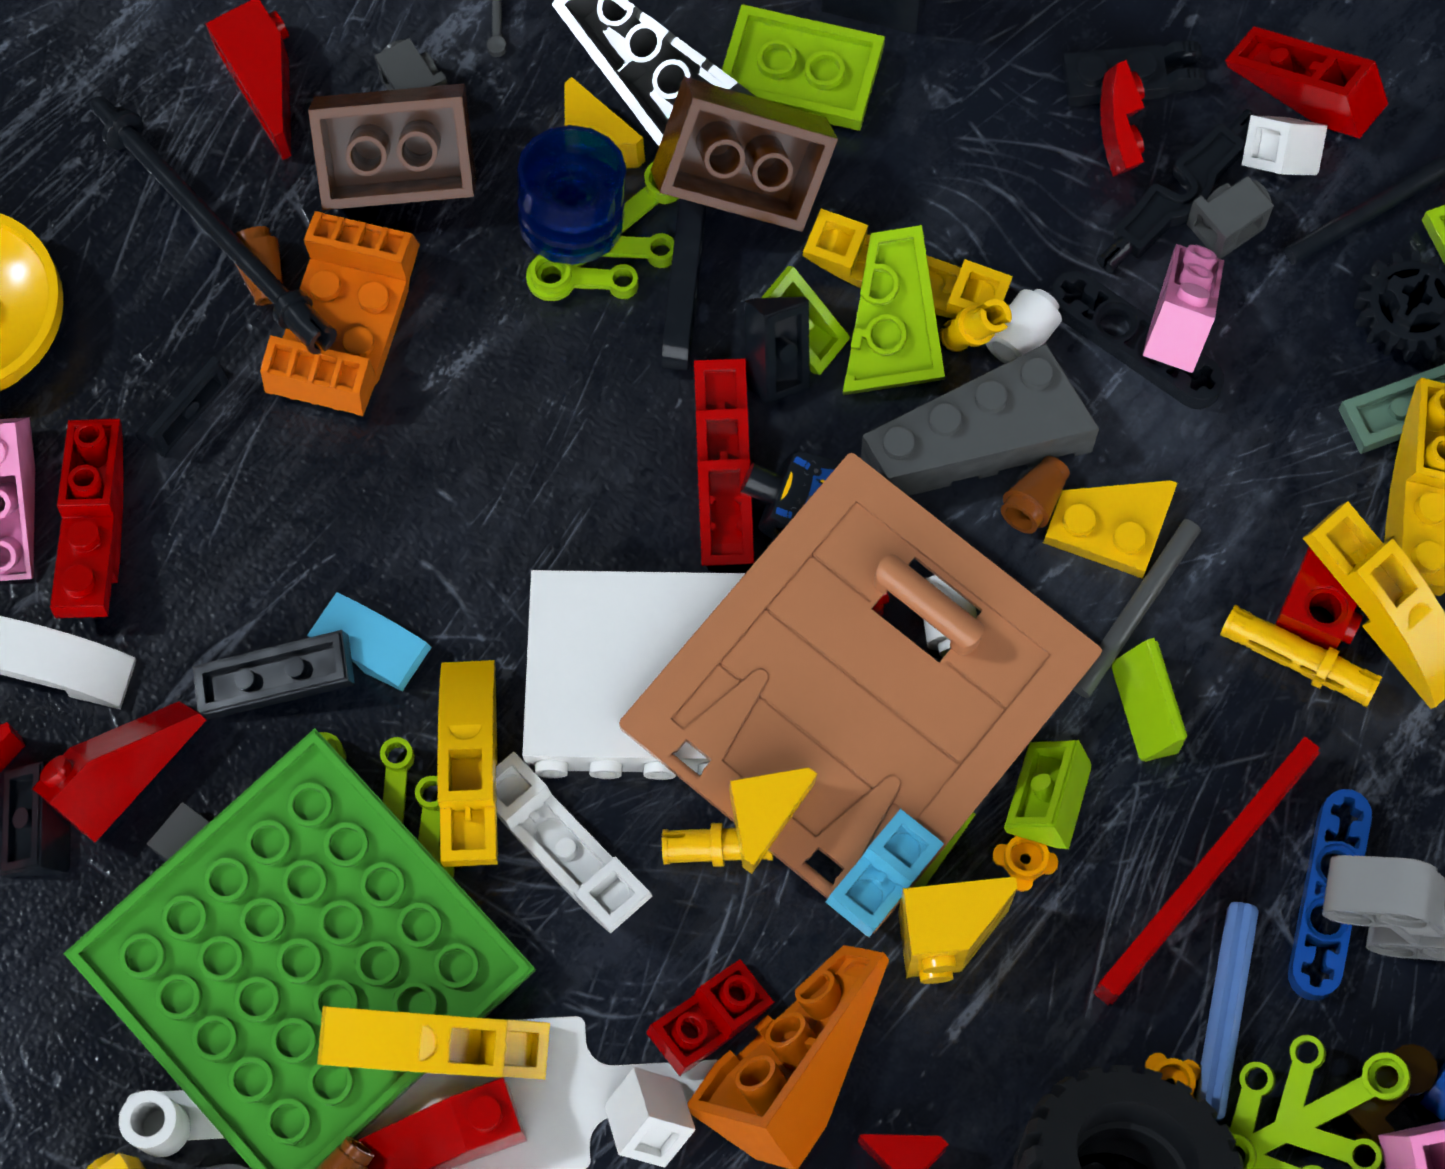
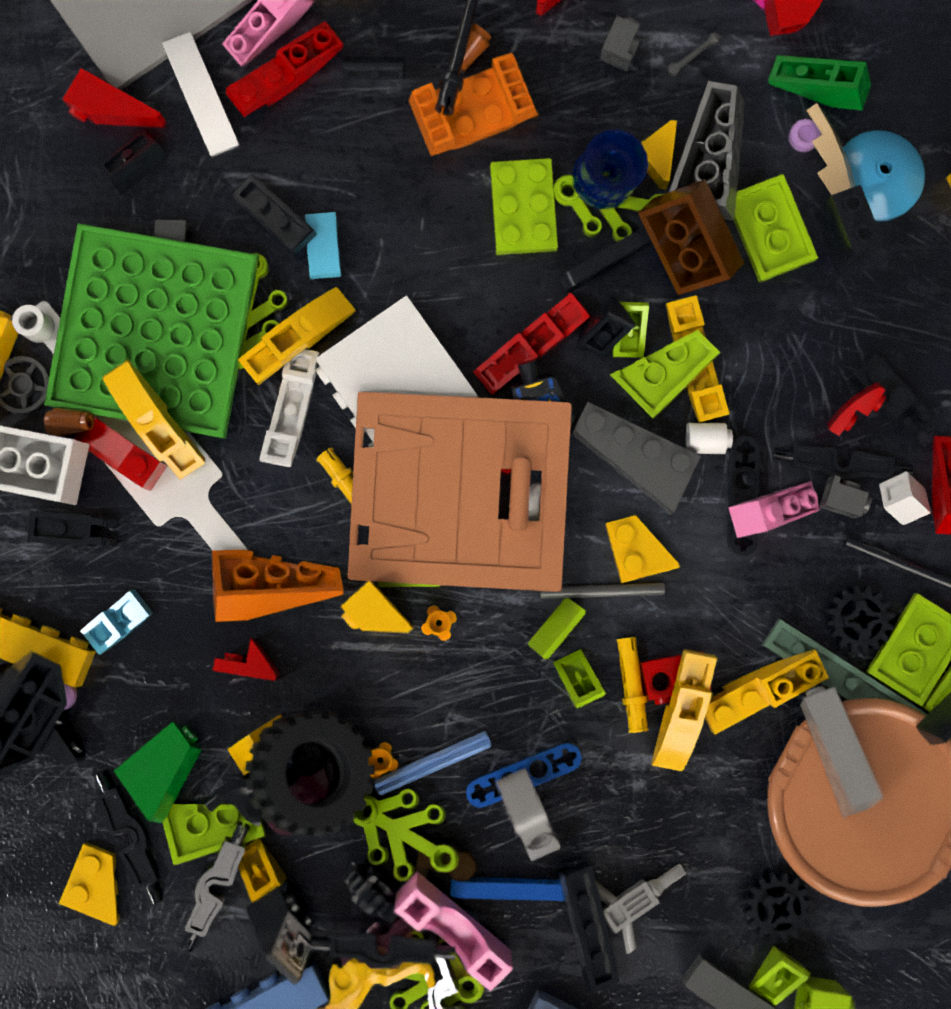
camera: 50 degrees right, 15 degrees up
(107, 772) = (176, 177): red slope -> none
(392, 146) = (573, 63): reddish brown brick -> none
(527, 347) = (523, 206): none -> lime plate
(649, 1117) = (195, 538): white panel -> none
(709, 1017) = (261, 532): red slope -> none
(764, 808) = (363, 489): yellow slope -> none
(883, 871) = (377, 565): medium azure slope -> none
(976, 325) = (687, 415): yellow pin -> none
(1034, 497) = (623, 504): dark orange cone -> none
(1049, 793) = (477, 613): lime slope -> none
(1206, 872) = (492, 711): red tile -> none
(1245, 720) = (579, 679): none -> lime slope

